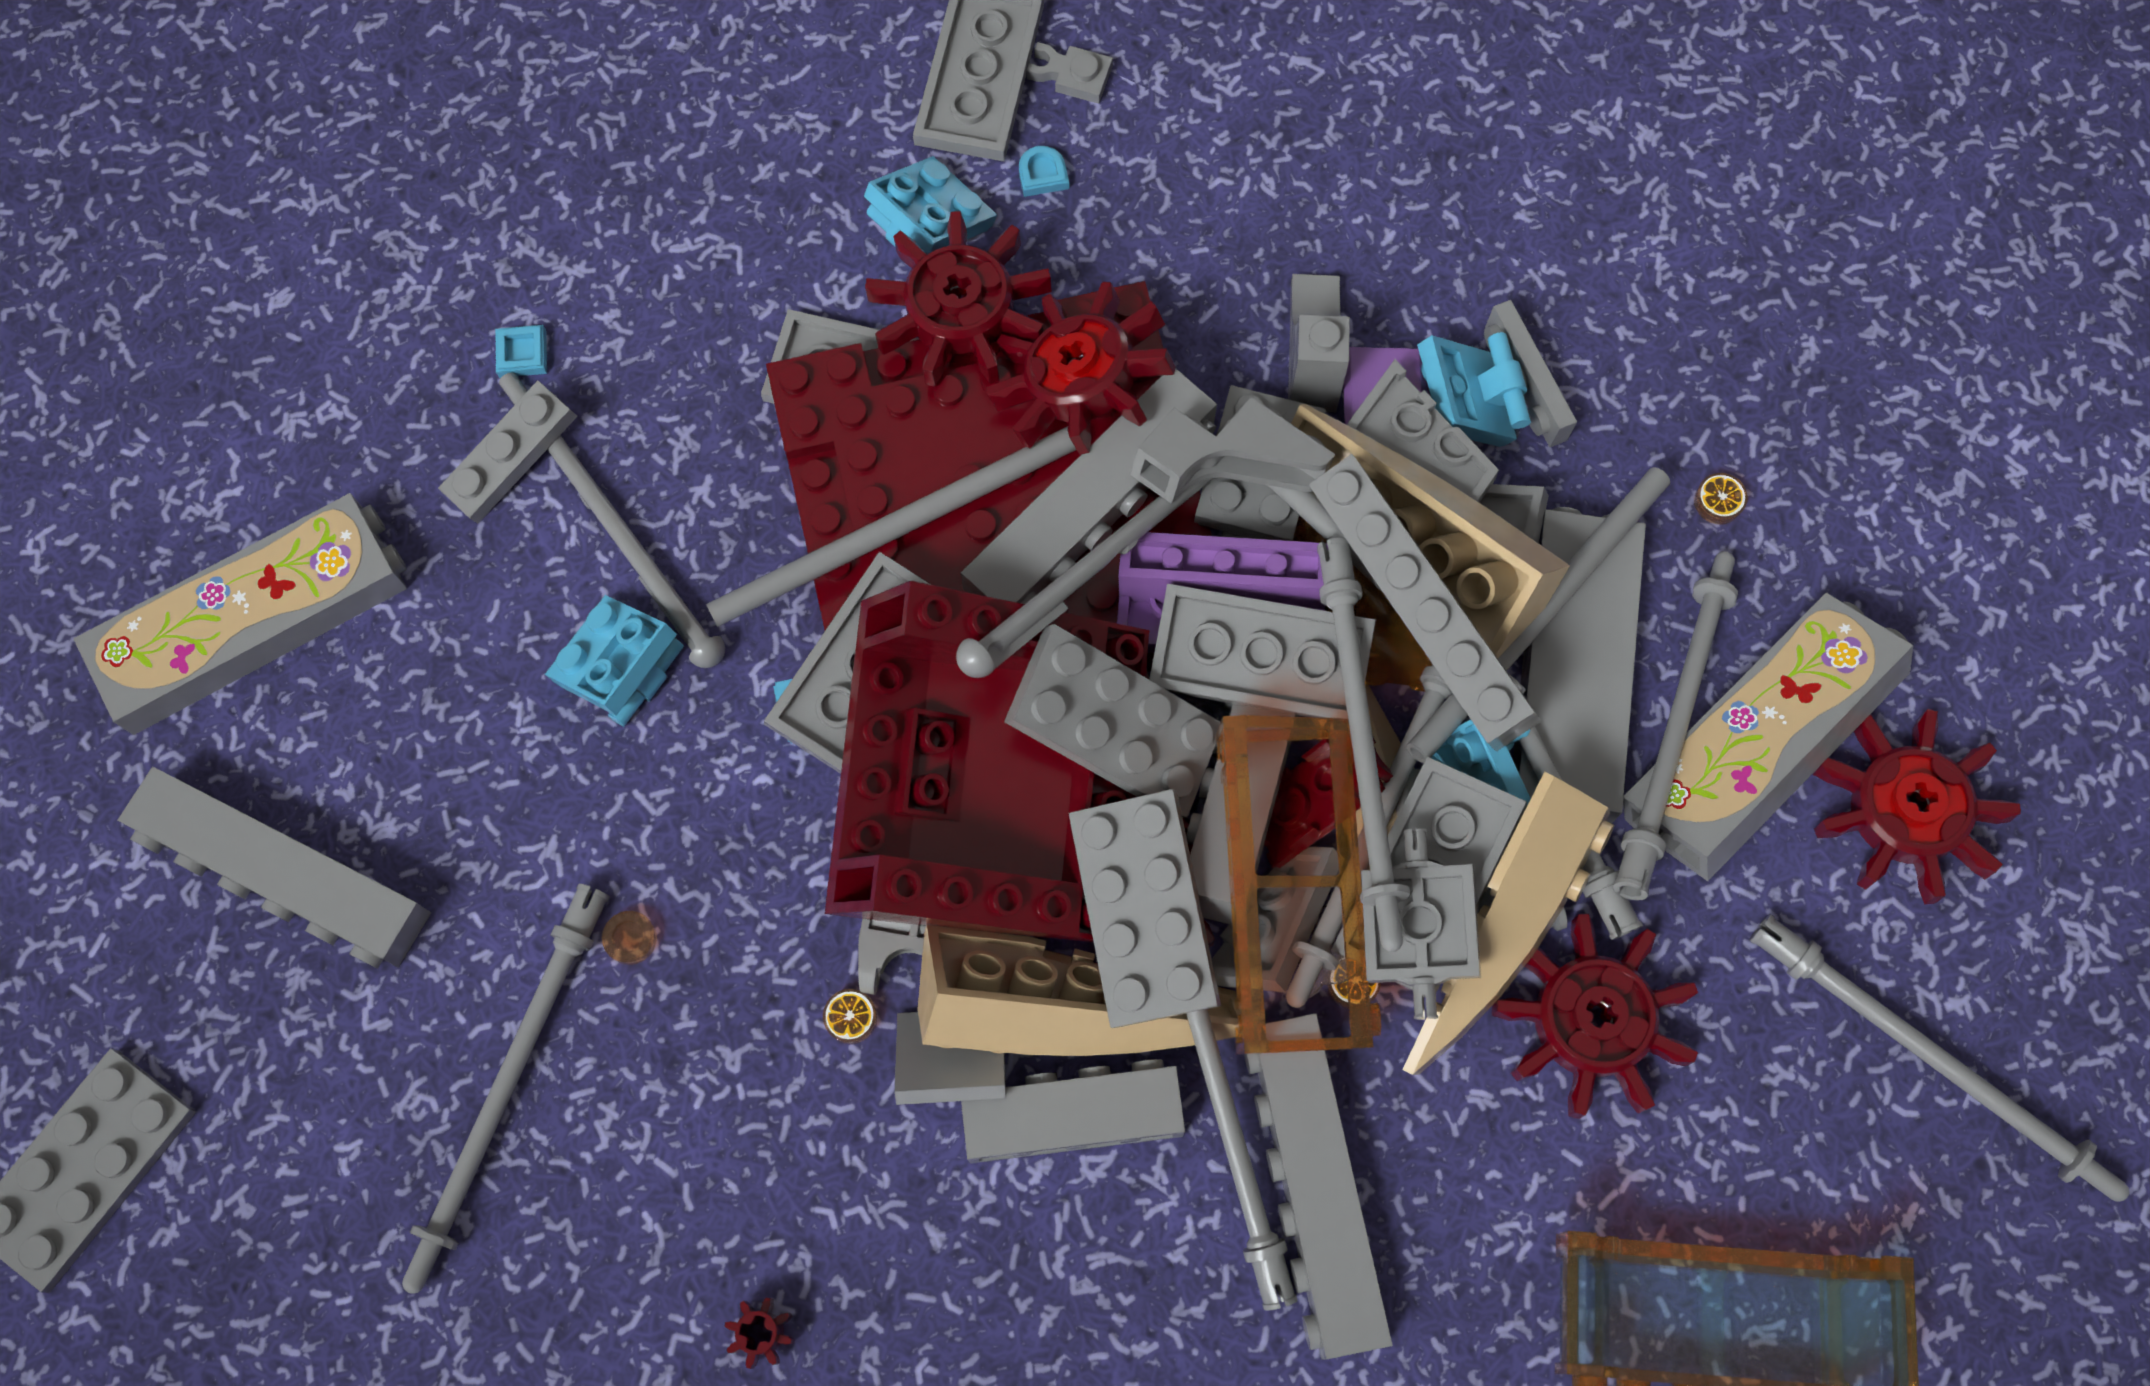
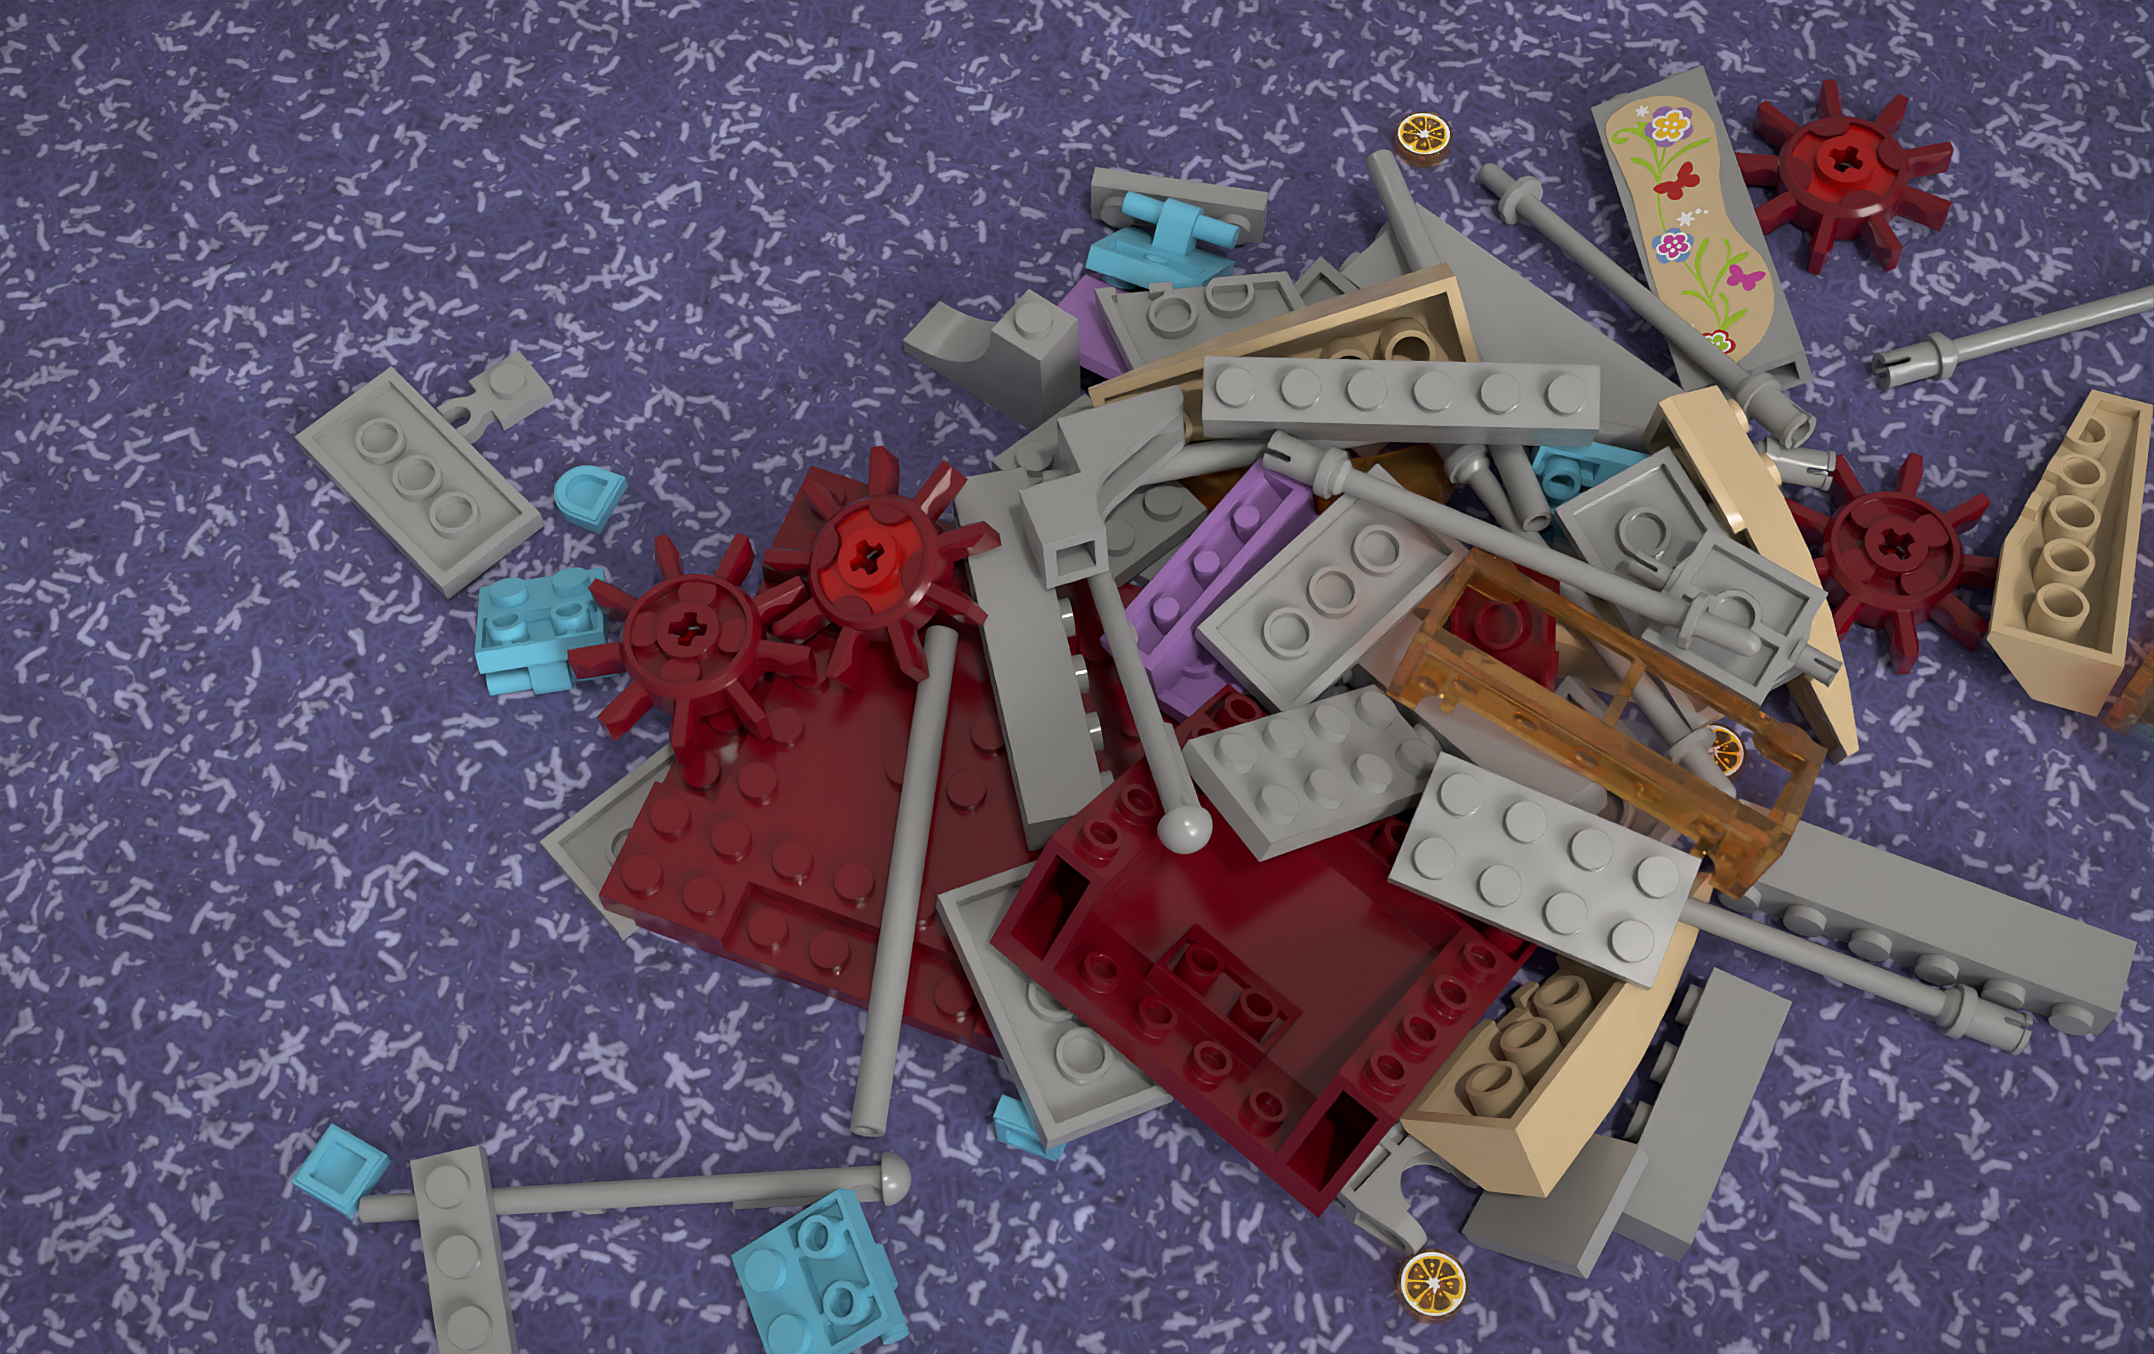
camera: 55 degrees left, 10 degrees down
(1691, 1140) = (2073, 559): none -> tan wedge

